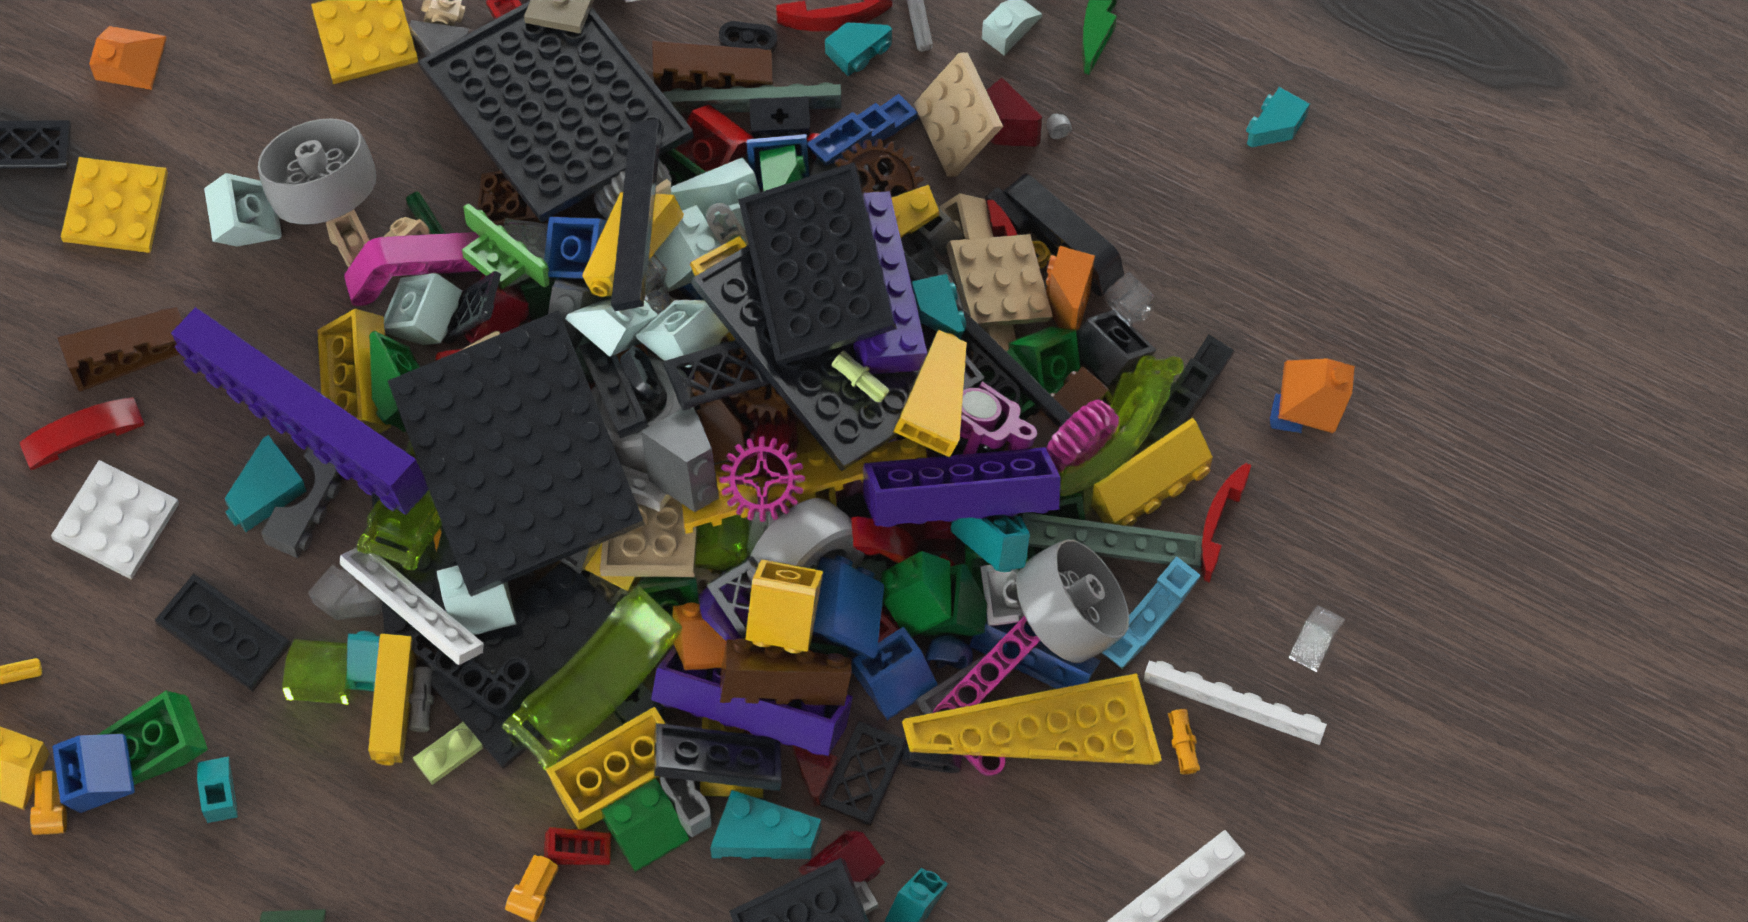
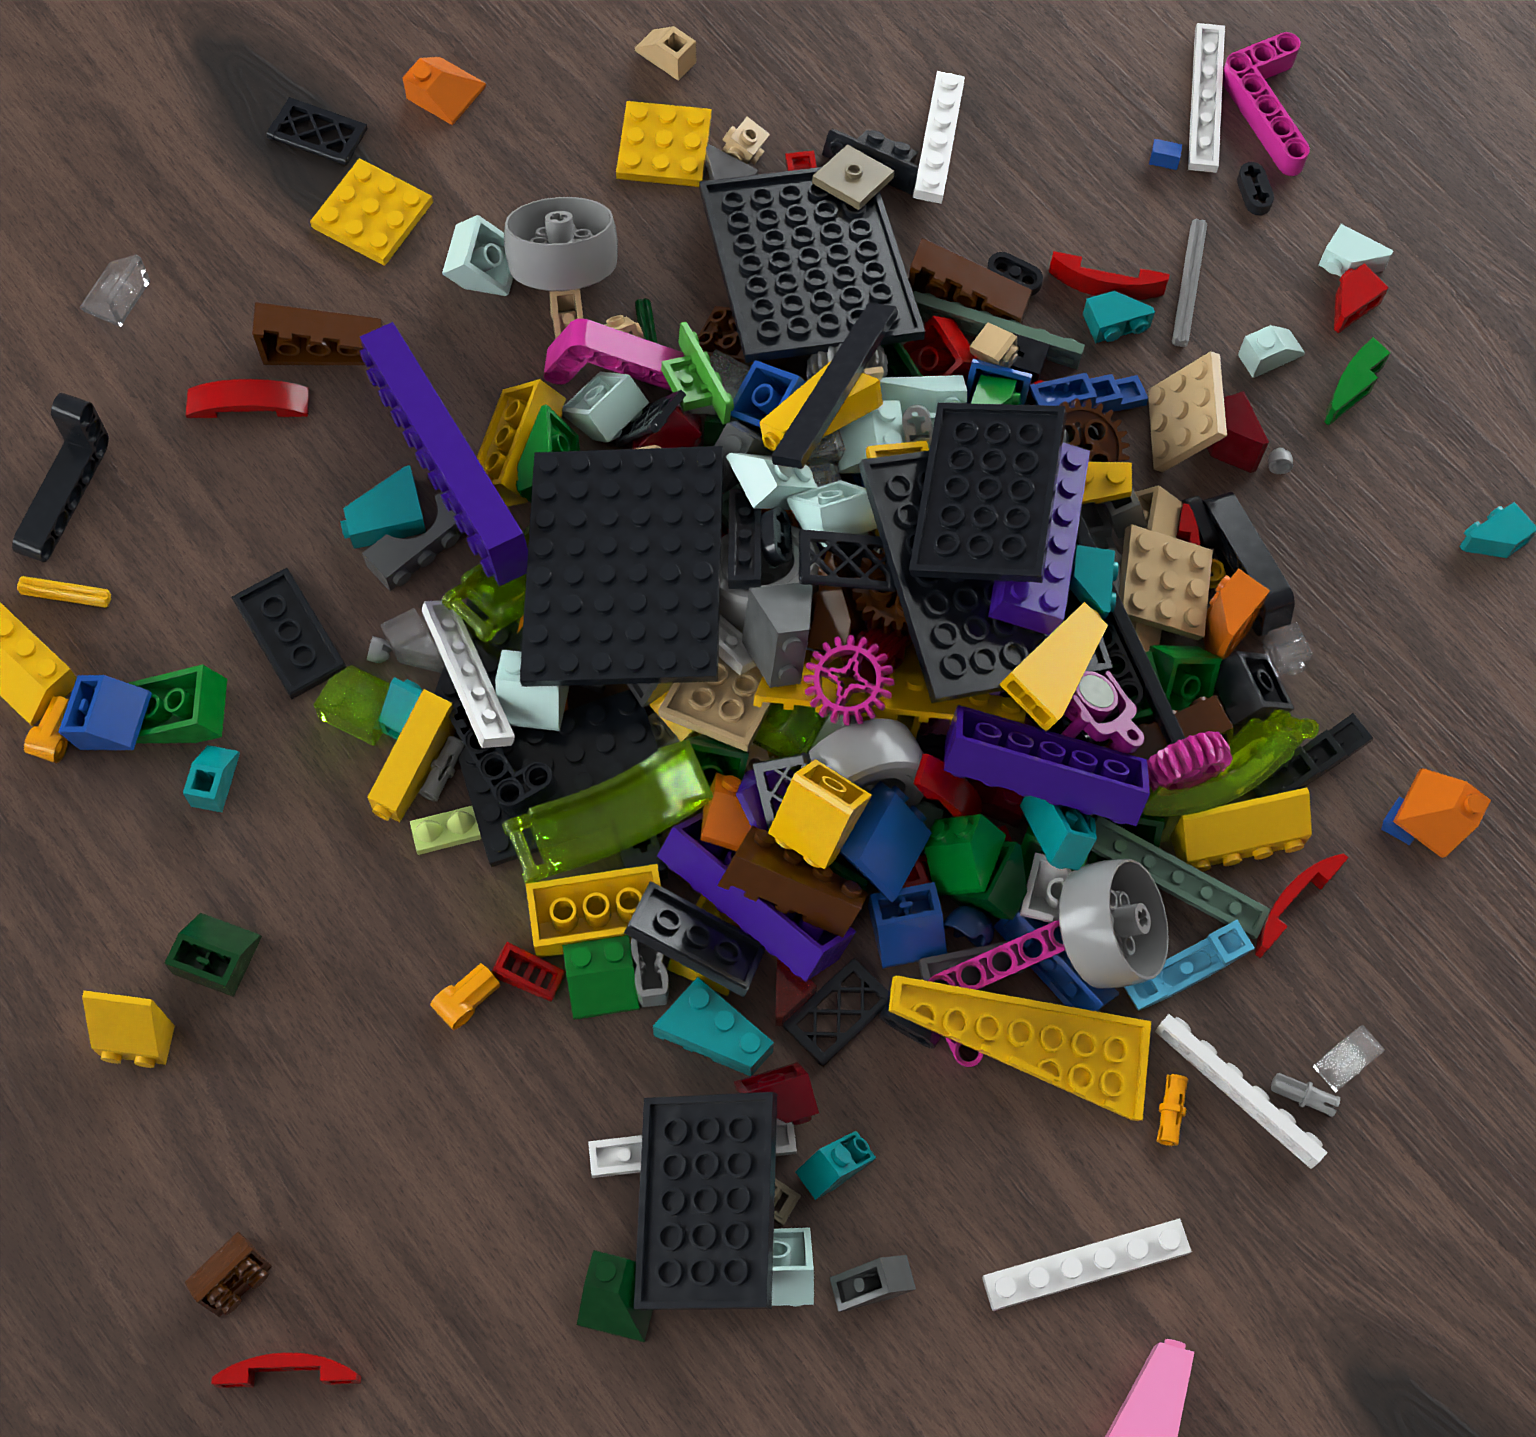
camera: 20 degrees right, 0 degrees up
(115, 519) = (240, 491): white plate -> none
(313, 616) = (378, 650): none -> light grey hinge
(761, 120) = (995, 346): none -> tan slope
(860, 376) = (987, 617): yellowish green axle -> none
(1290, 683) = (1305, 1094): none -> light grey axle

